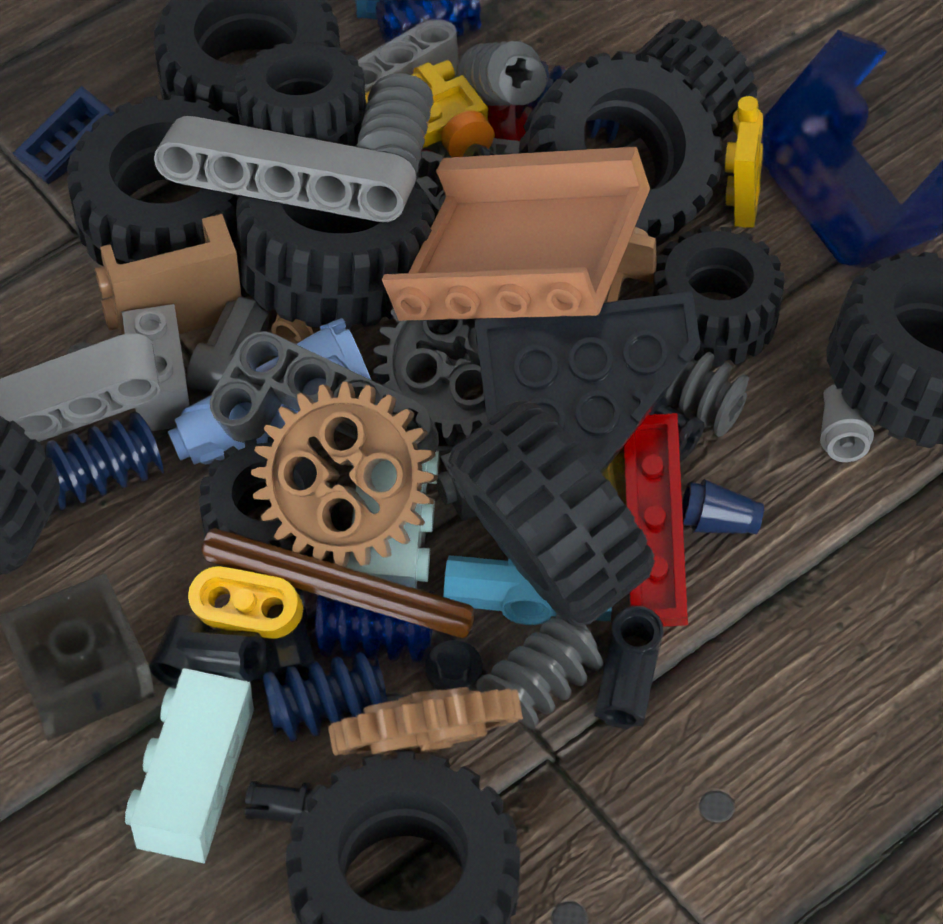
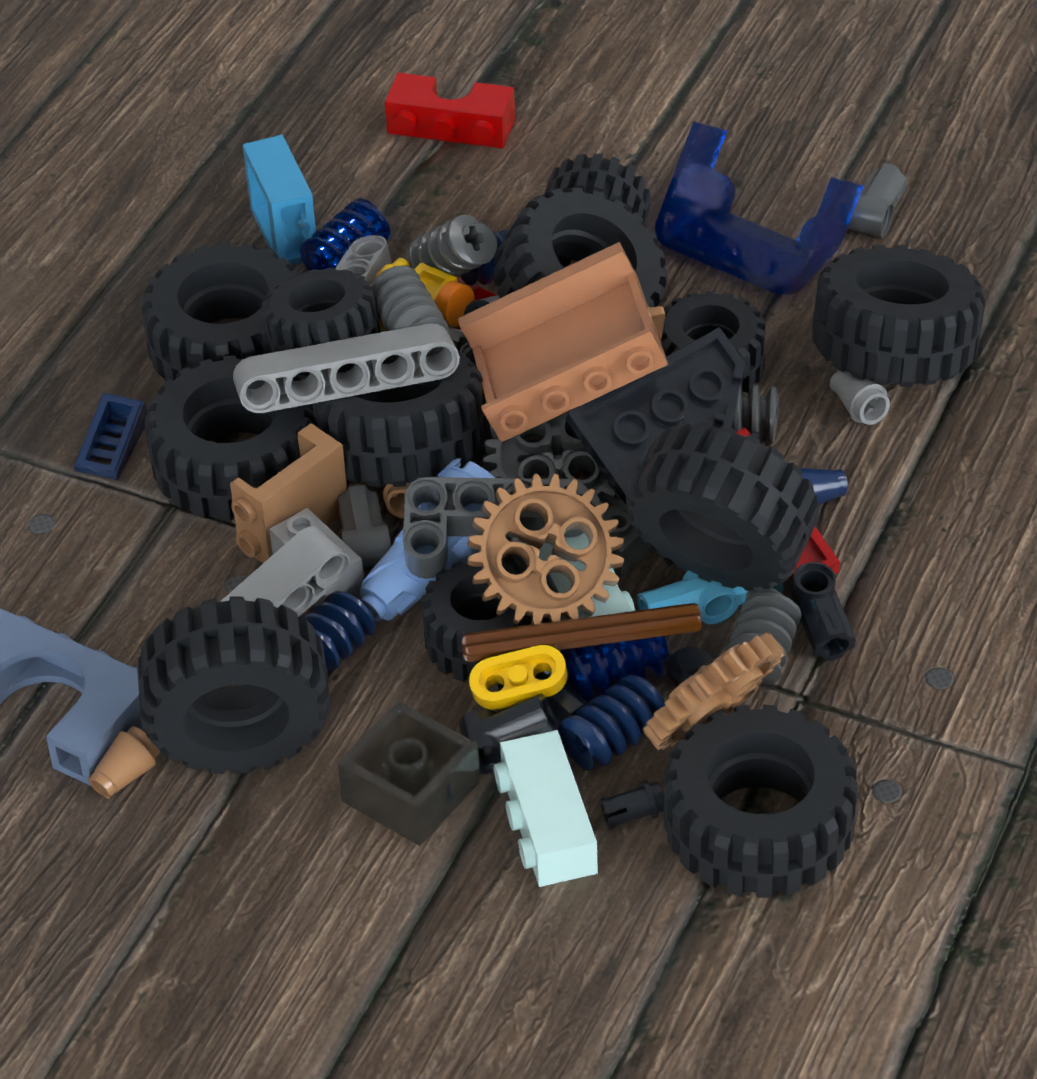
camera: 25 degrees left, 10 degrees down
(745, 161) = (675, 244): yellow plate -> none

